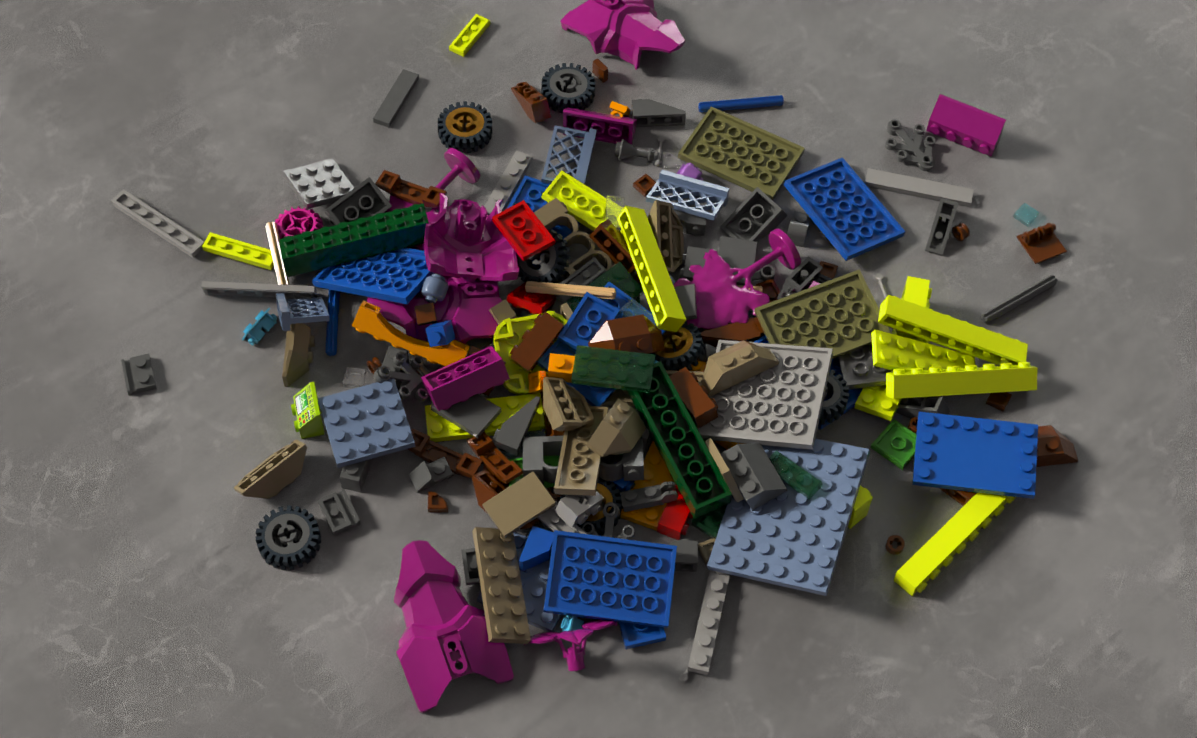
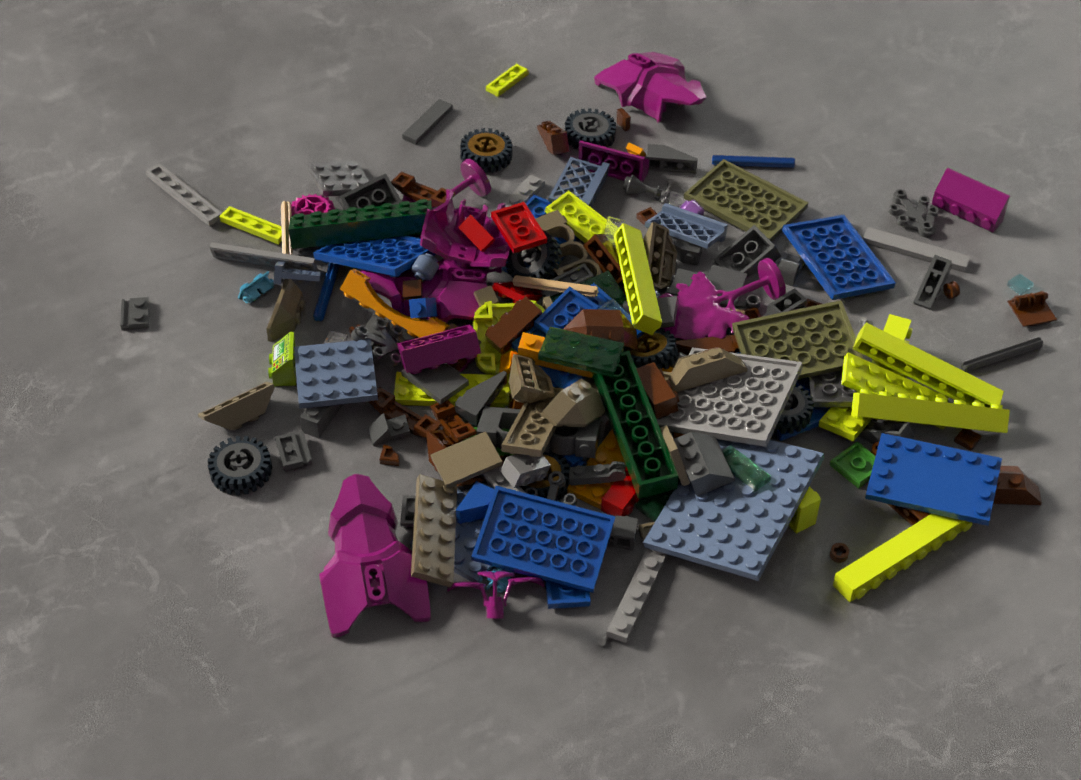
camera: 10 degrees right, 10 degrees down
(480, 241) = (476, 233): none -> red tile

